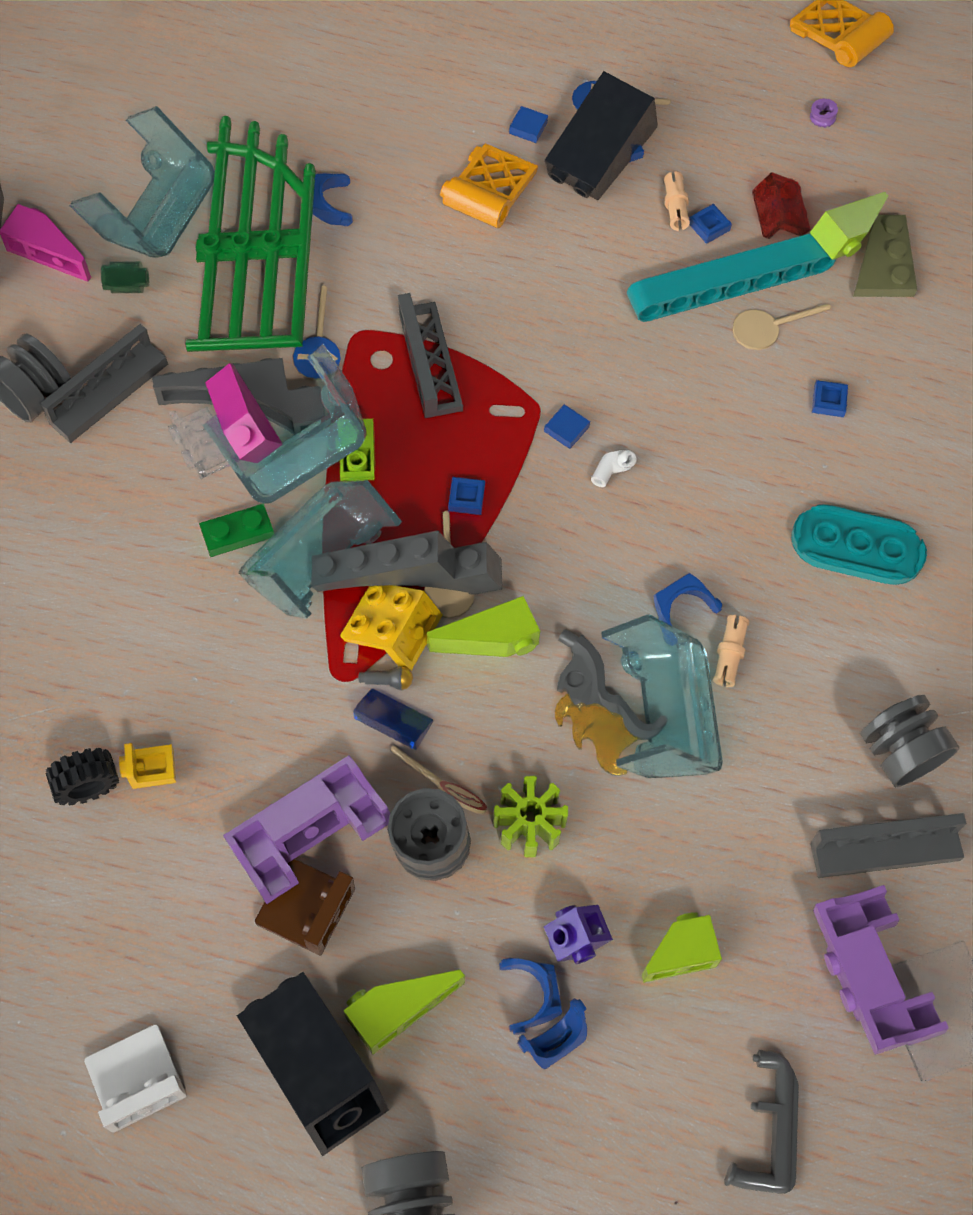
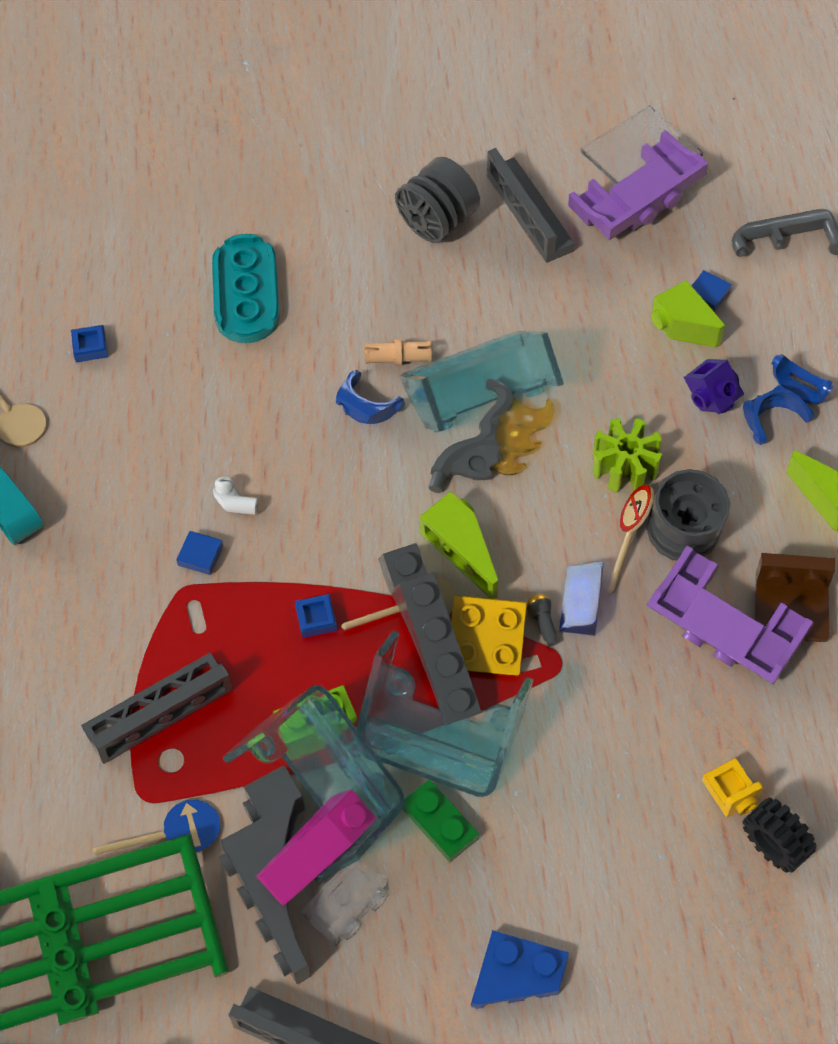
camera: 105 degrees left, 5 degrees down
(85, 544) = (518, 970): none -> blue wing
(714, 995) = (711, 289): none -> blue tile

